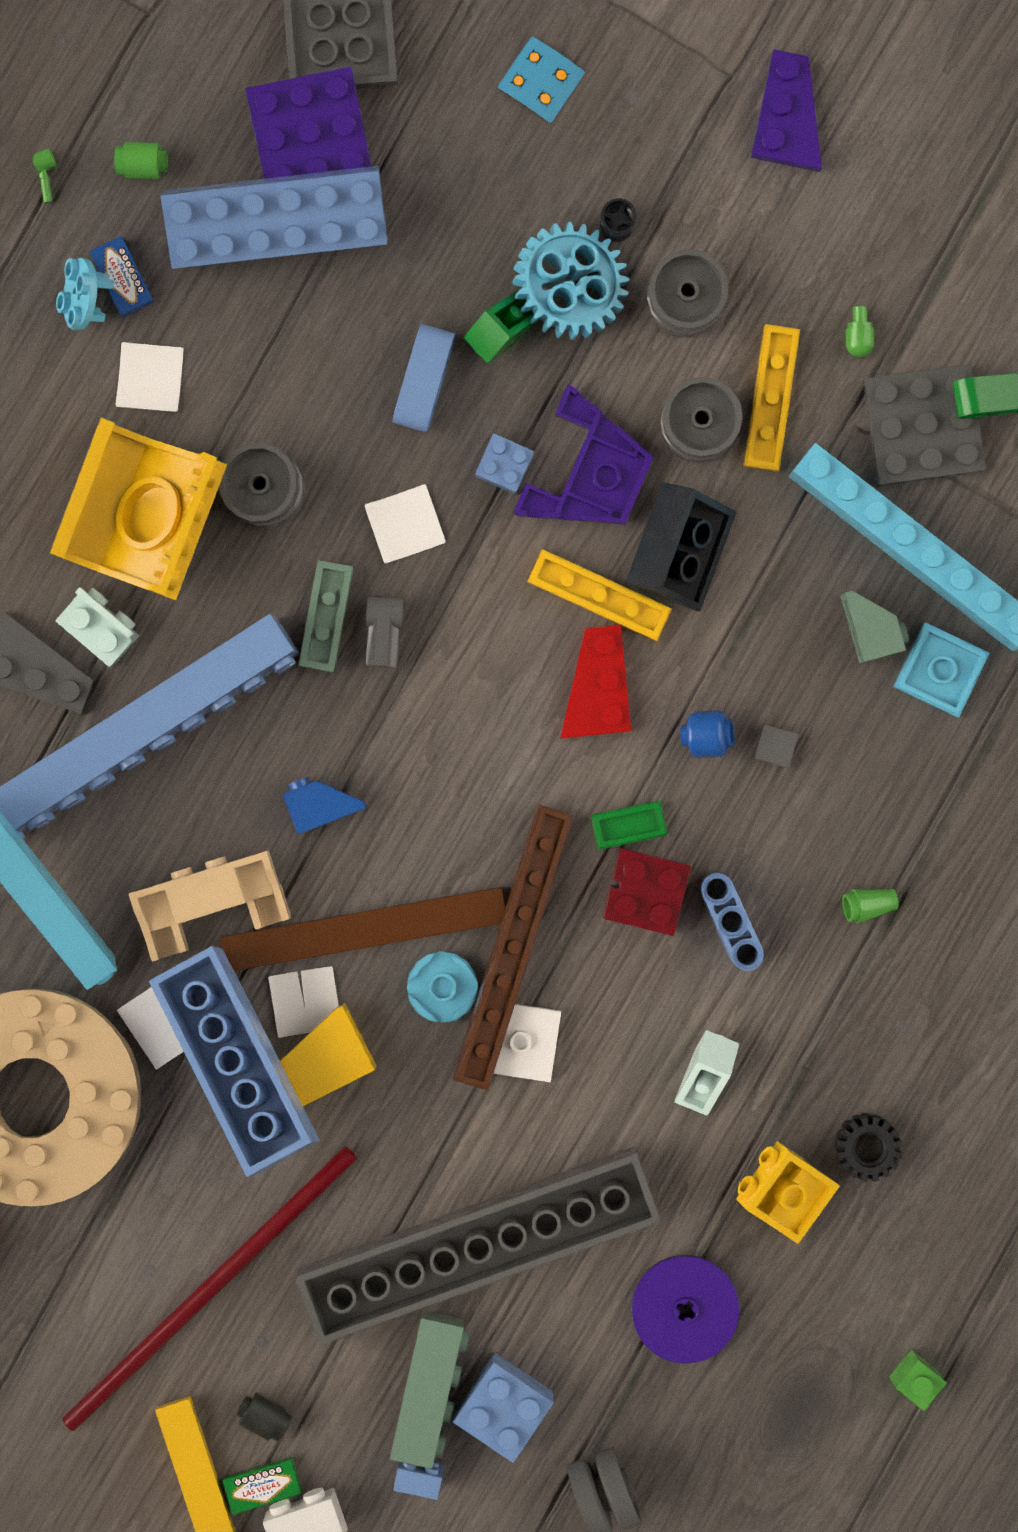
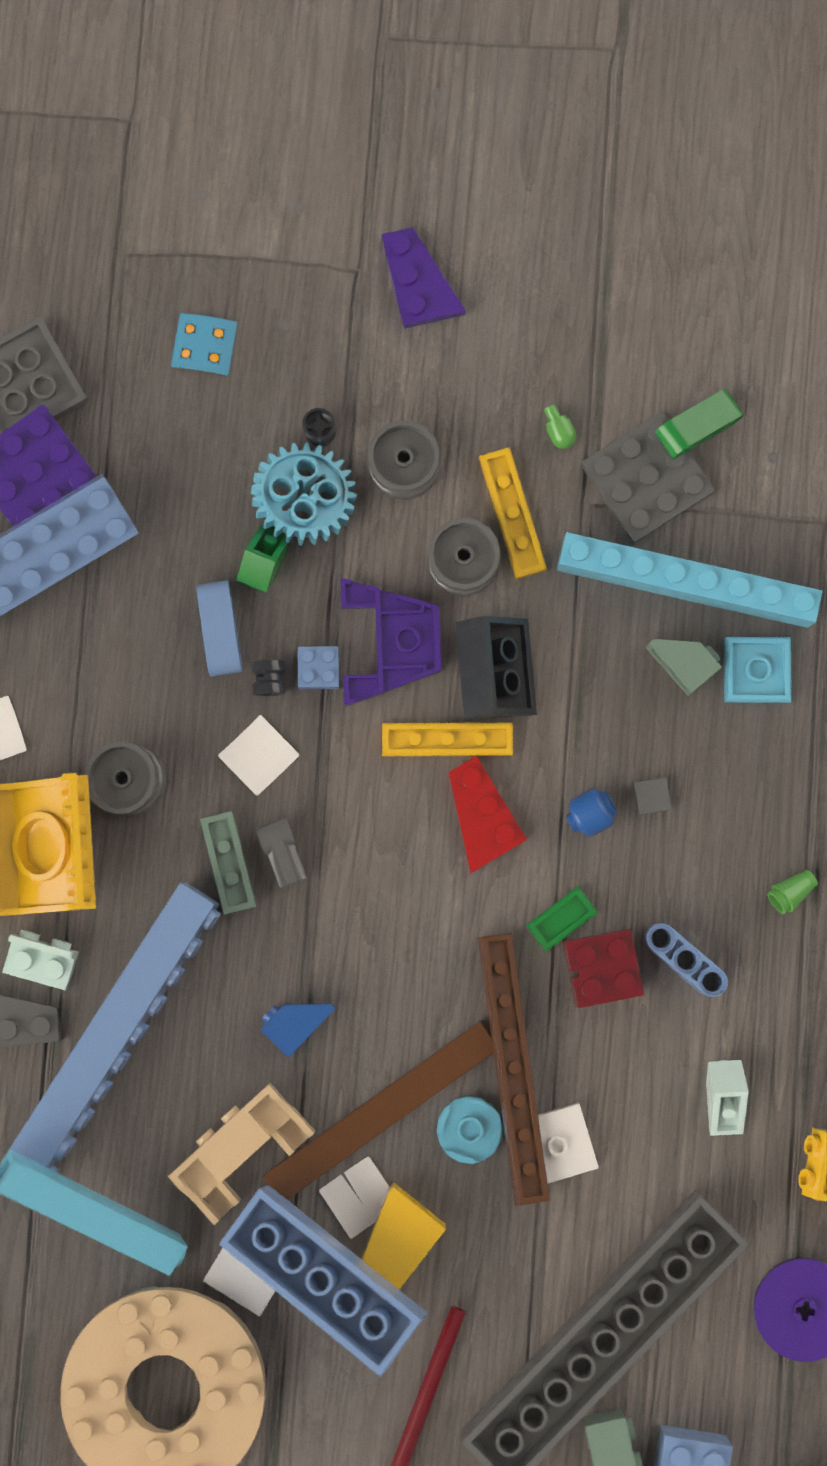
camera: 30 degrees left, 5 degrees down
(450, 450) = (268, 677): none -> black wheel

